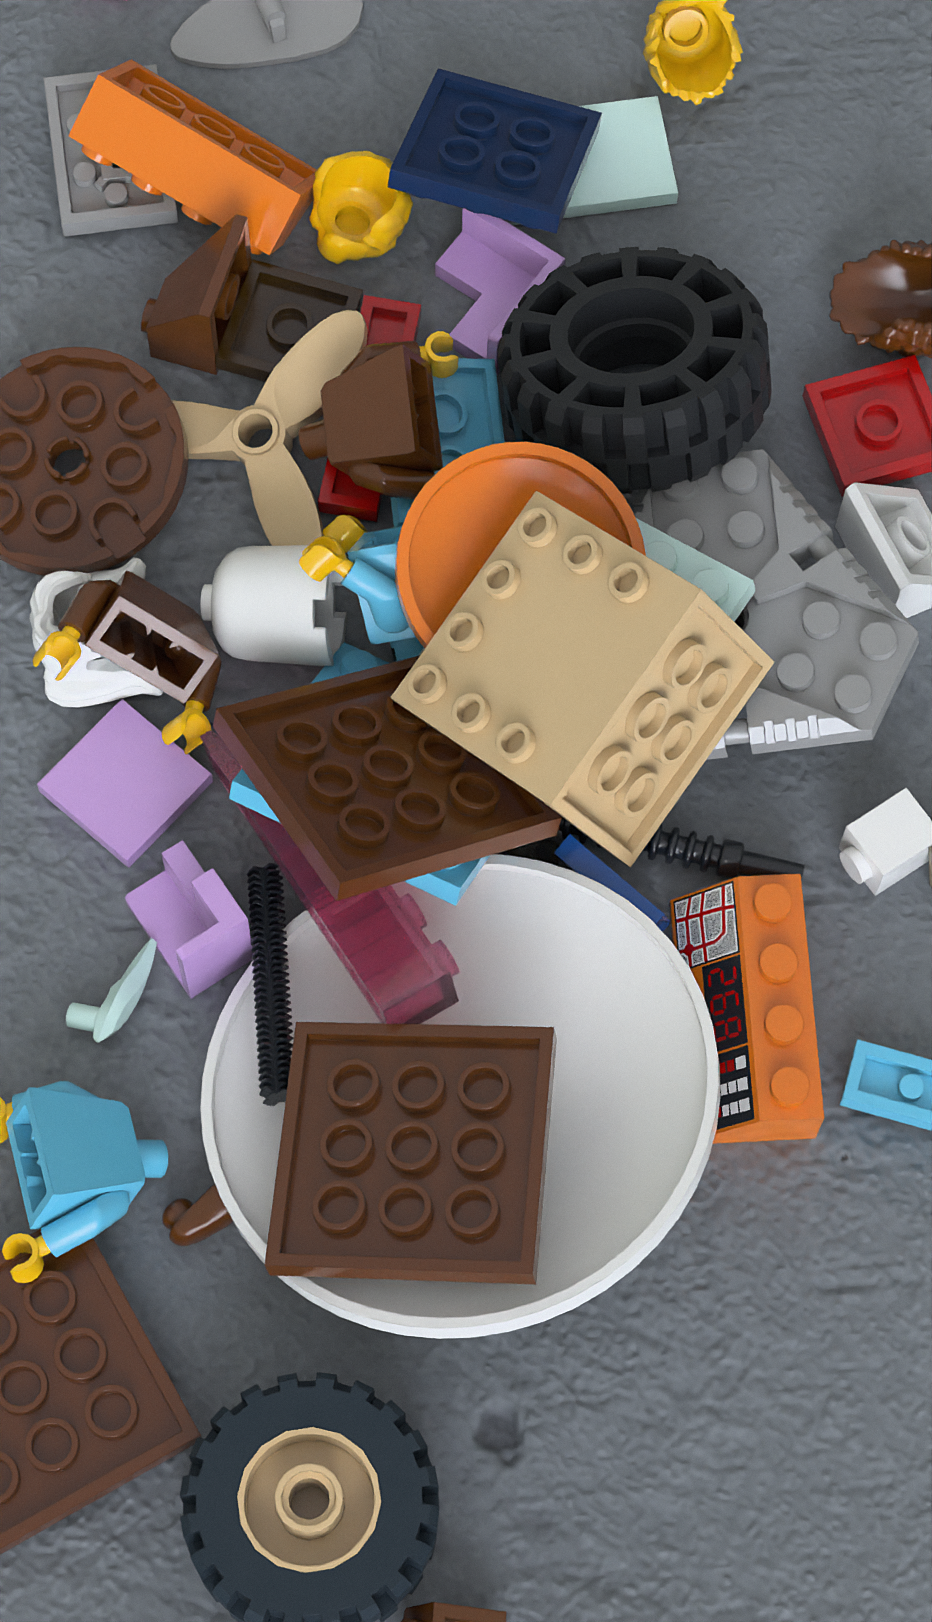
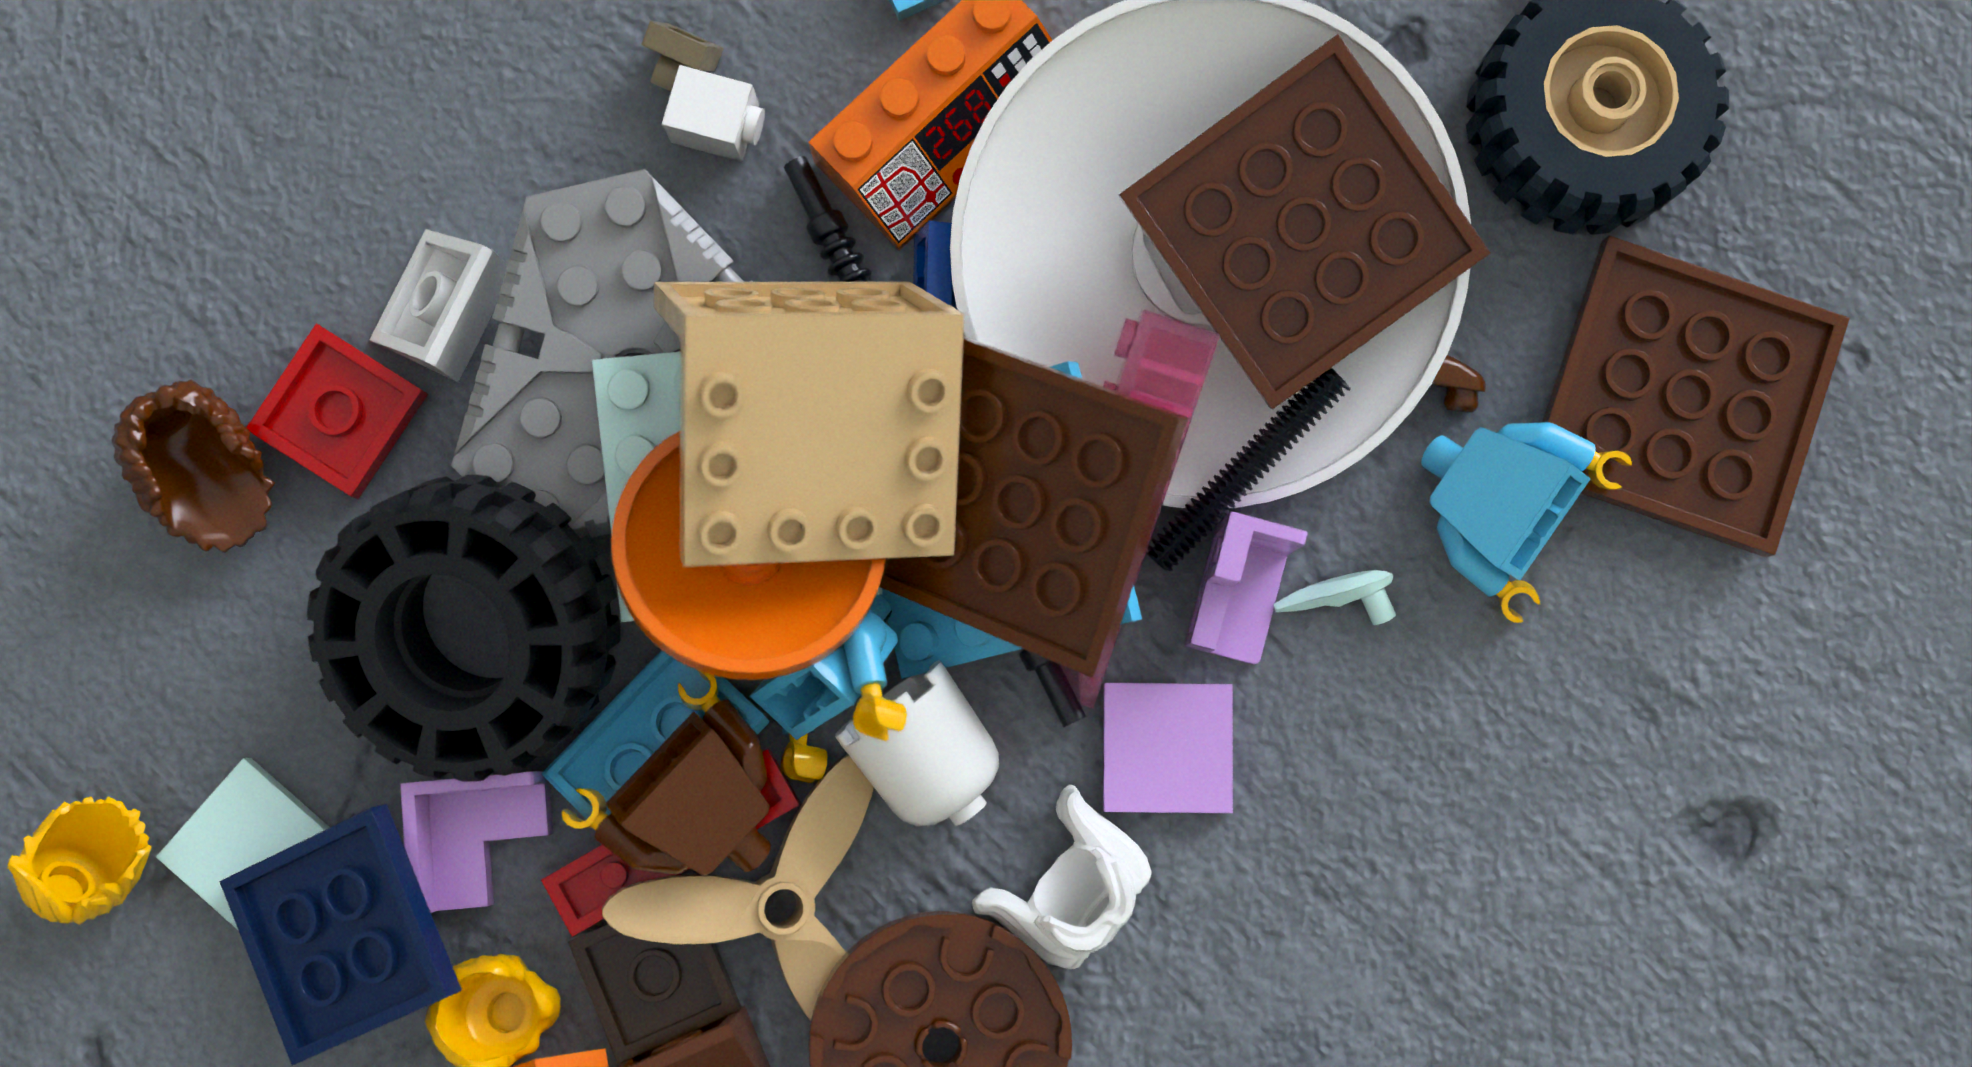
camera: 130 degrees left, 15 degrees up
(148, 637) = (1050, 825): reddish brown torso -> none

